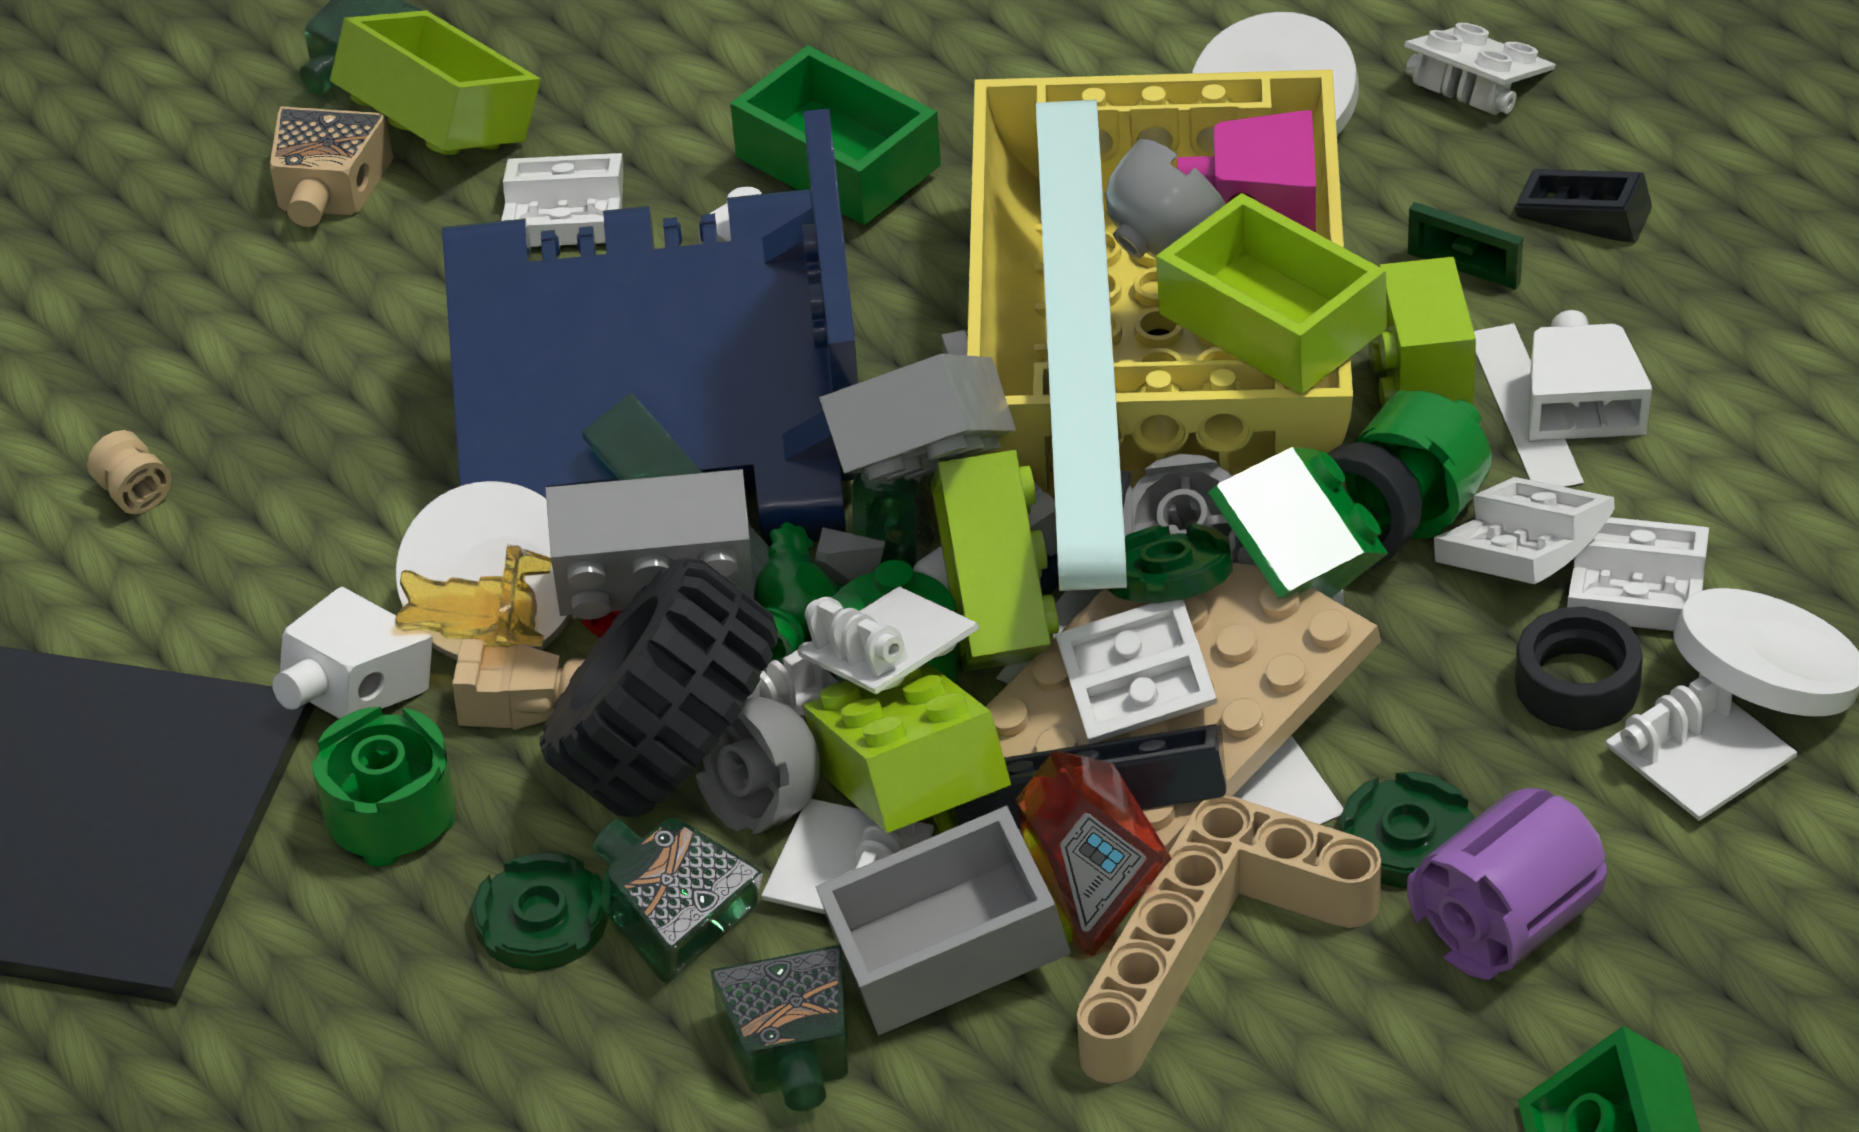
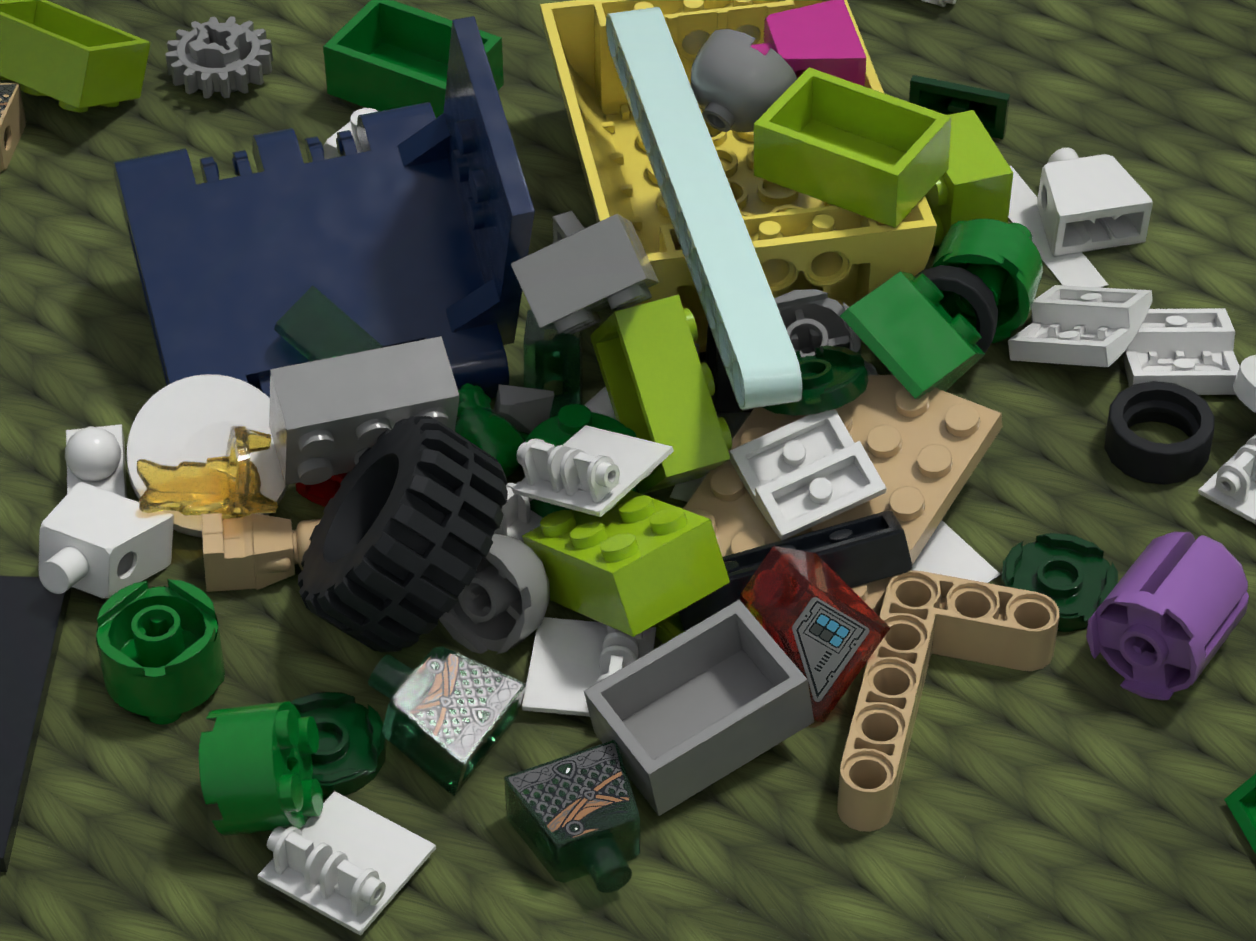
camera: 15 degrees left, 0 degrees up
(368, 563) = (97, 458): none -> white tile
(452, 926) = (260, 768): none -> green brick
(527, 1039) = (344, 862): none -> white hinge
(563, 193) = (200, 128): white slope -> none
(621, 101) = (219, 57): none -> light grey gear
(1606, 204) = (1044, 65): black slope -> none

